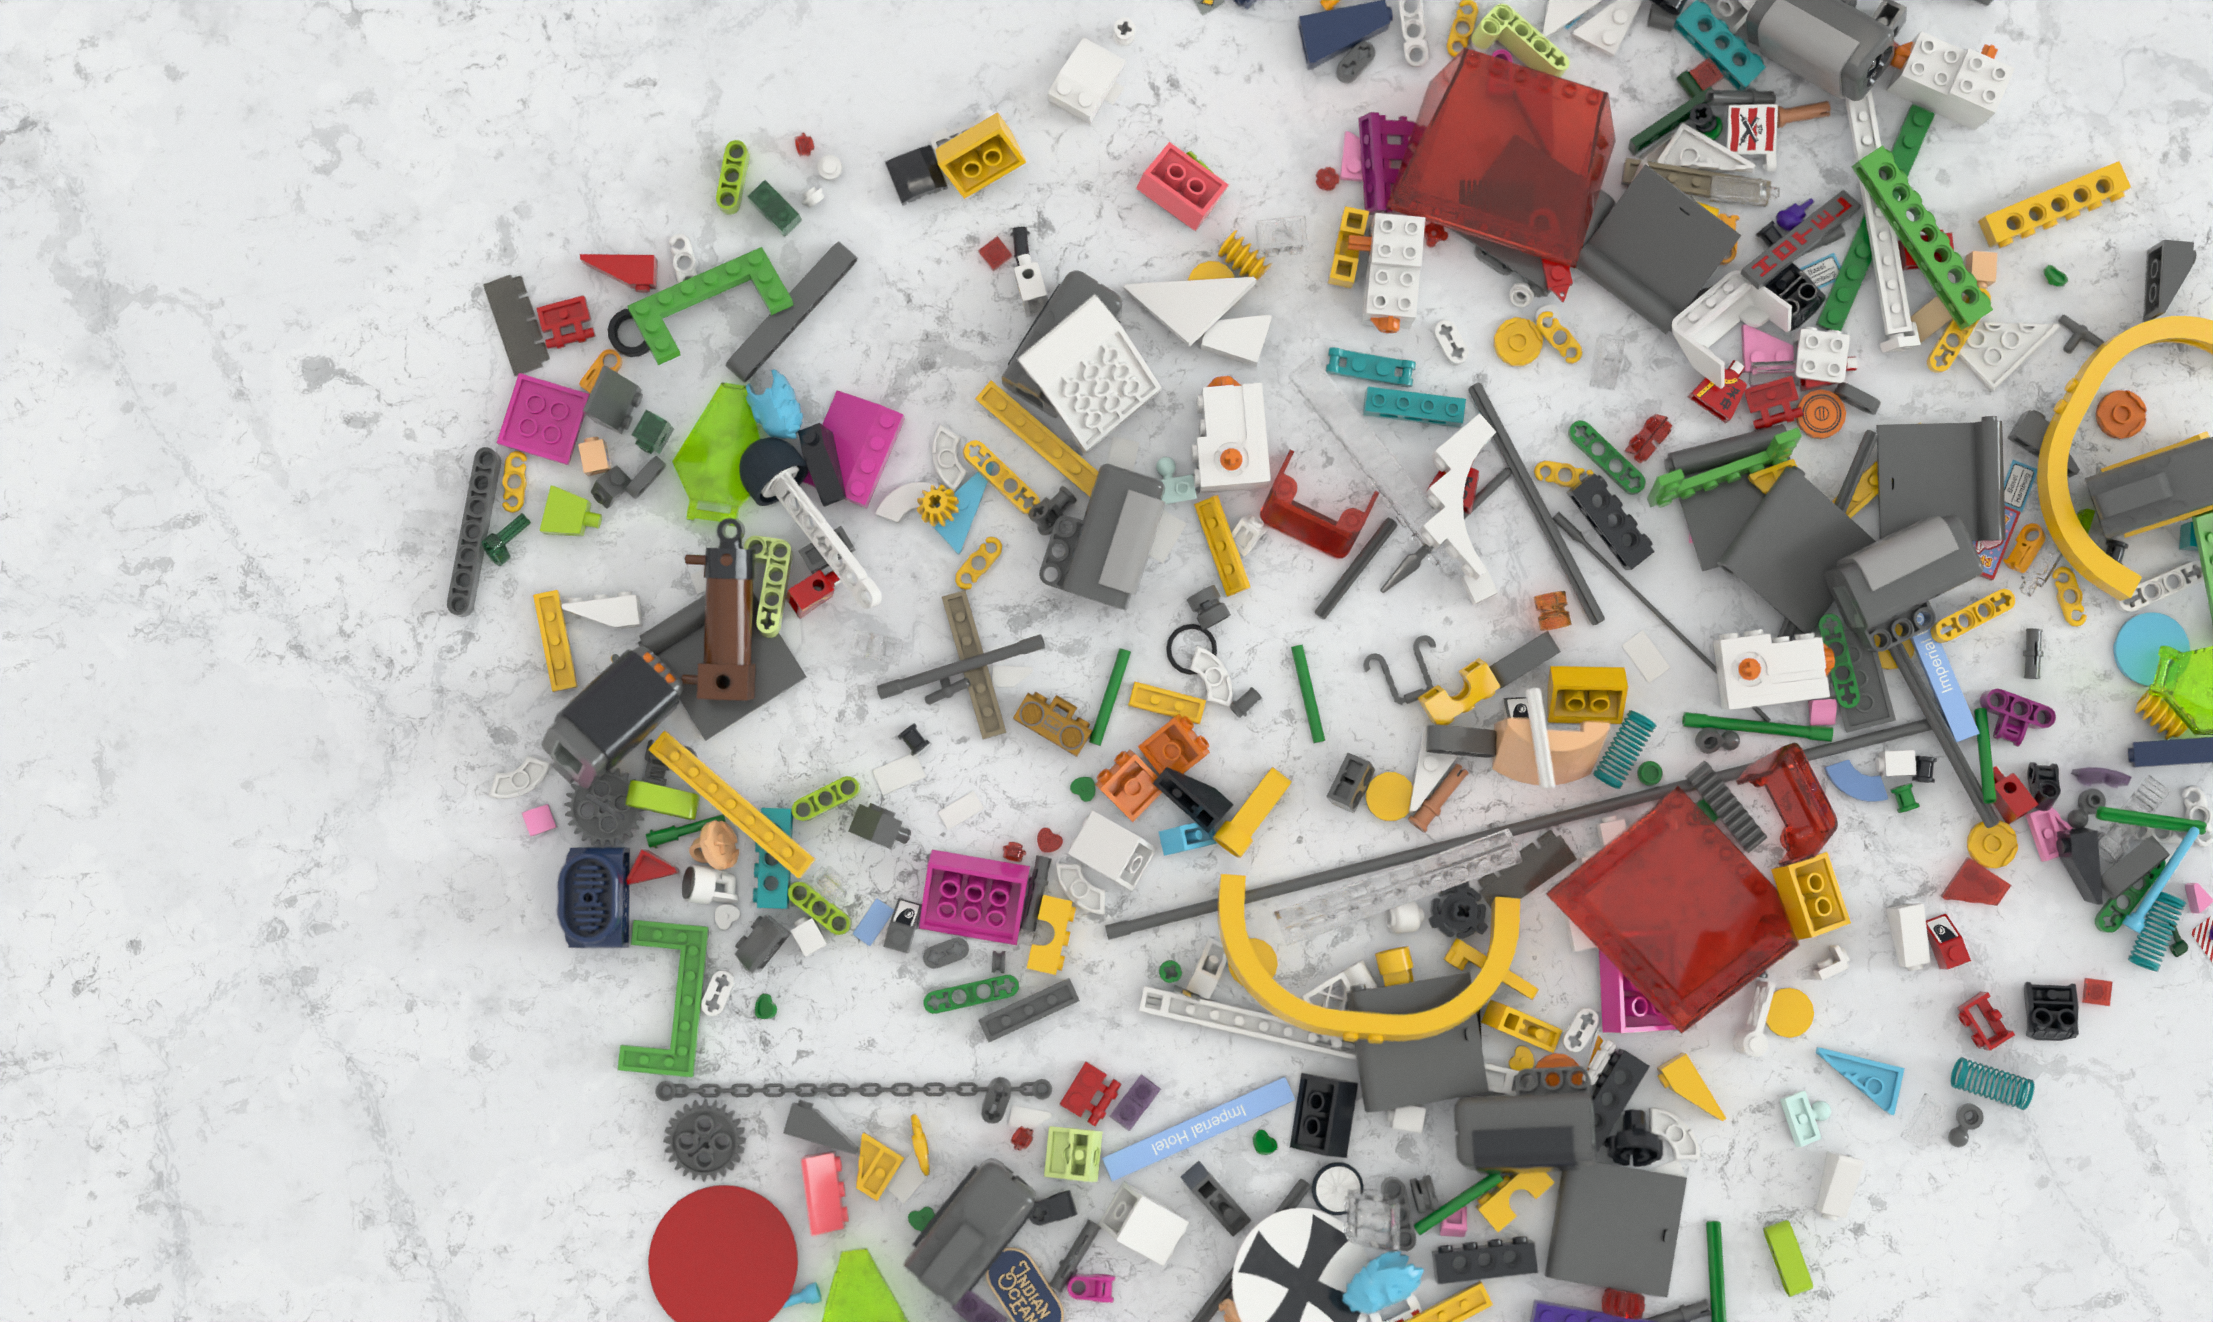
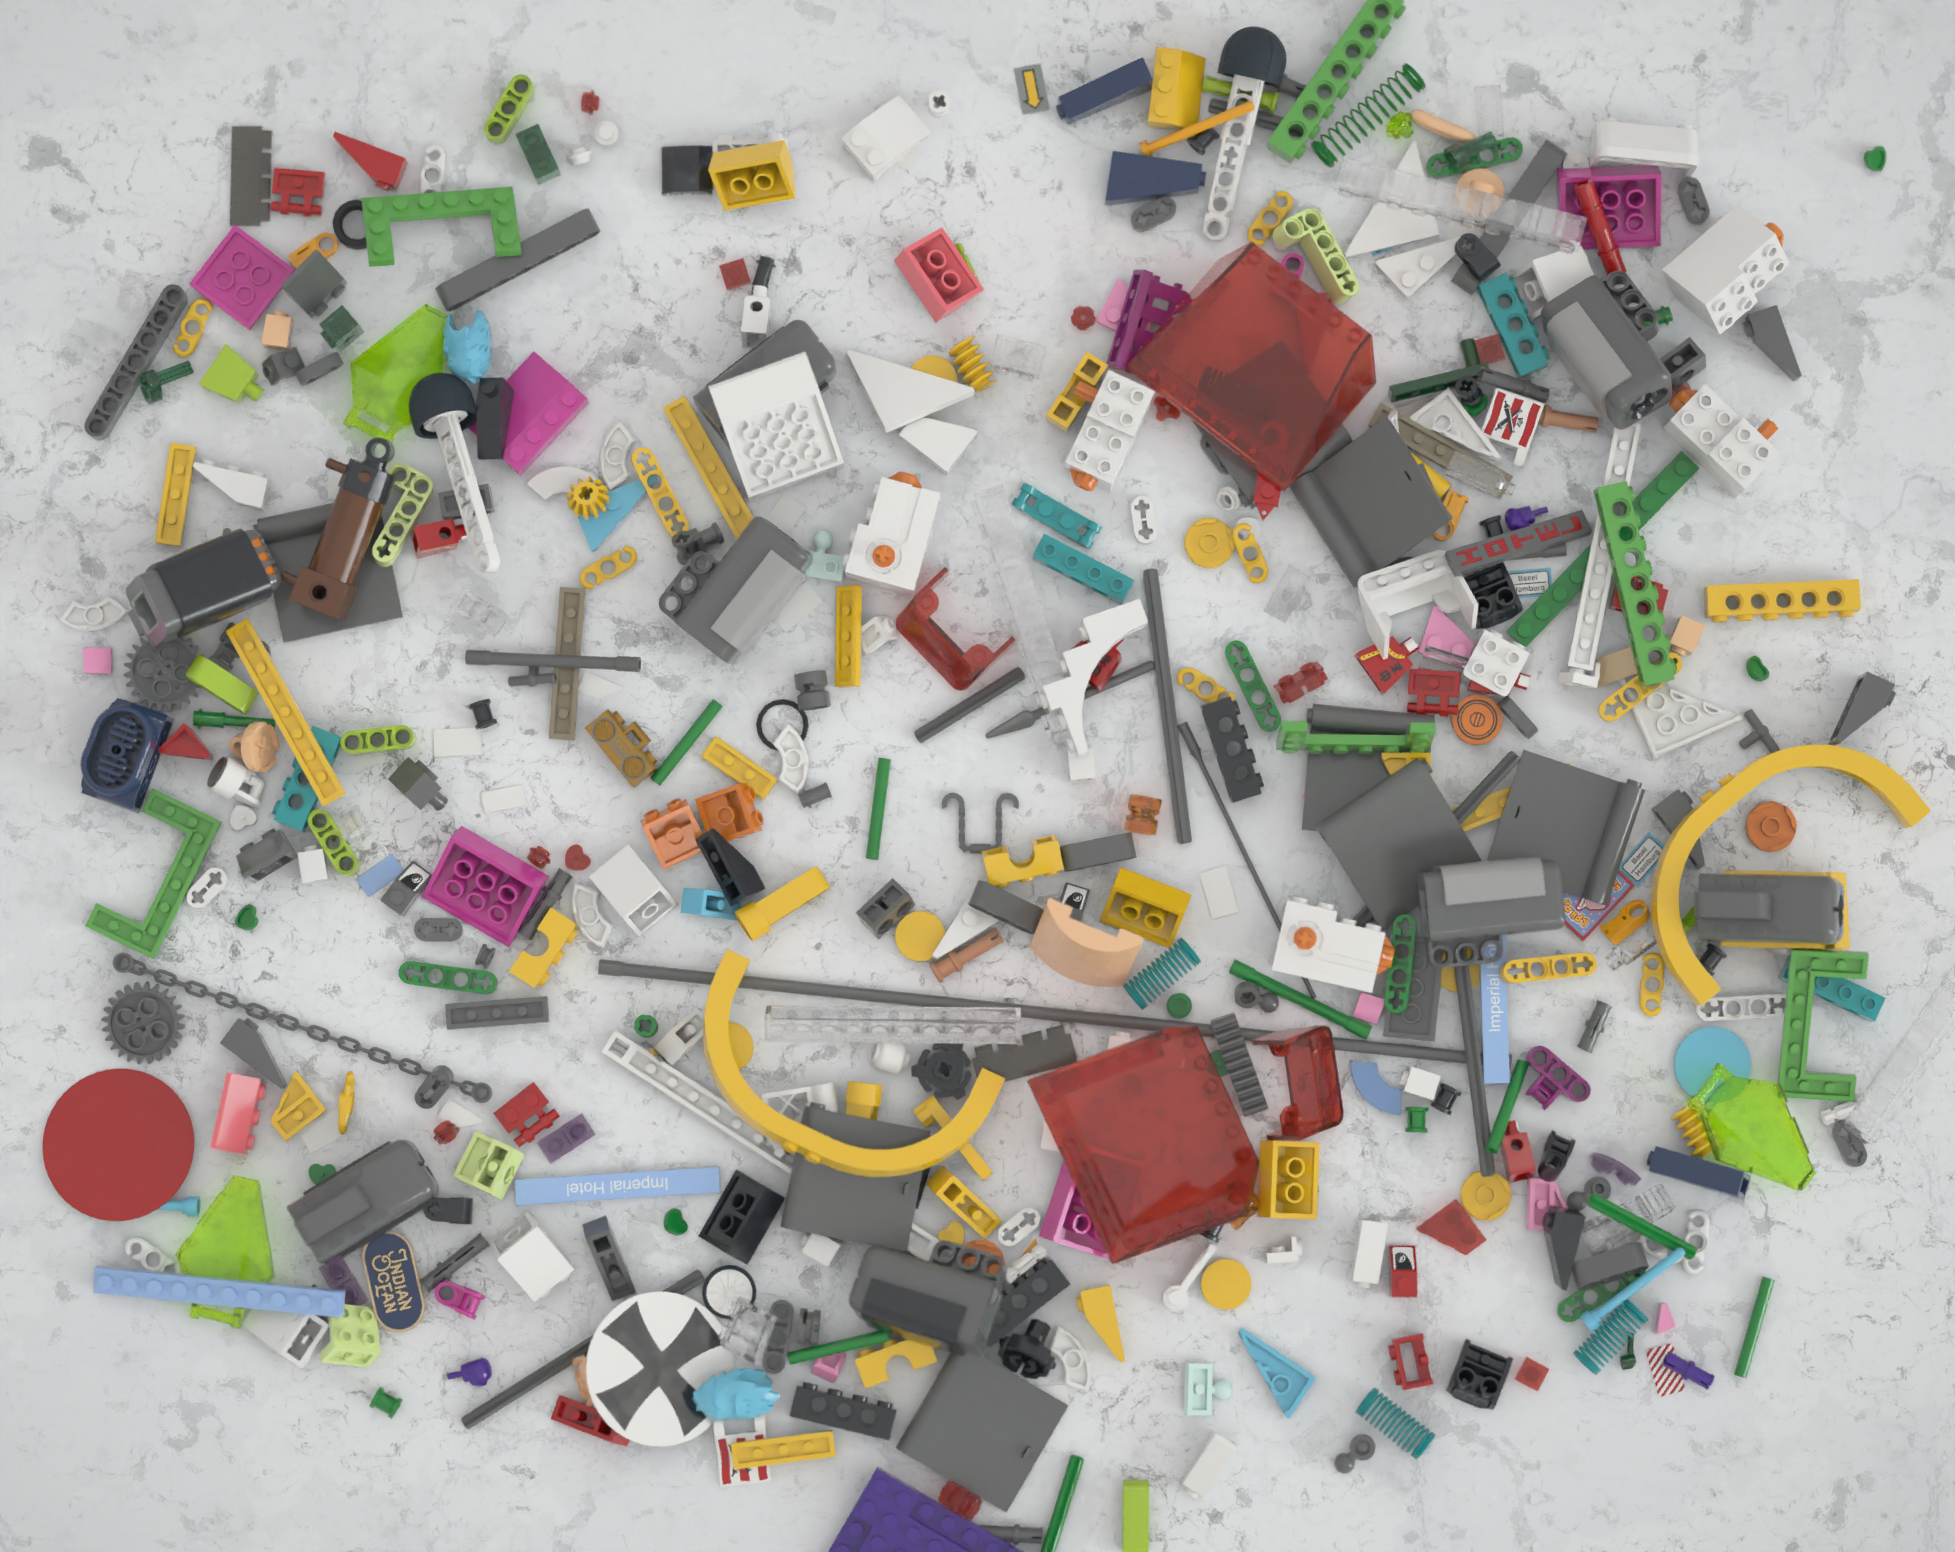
camera: 25 degrees right, 0 degrees up
(1084, 788) = (629, 820): green piece -> none
(1540, 738) = (1071, 928): white axle -> none

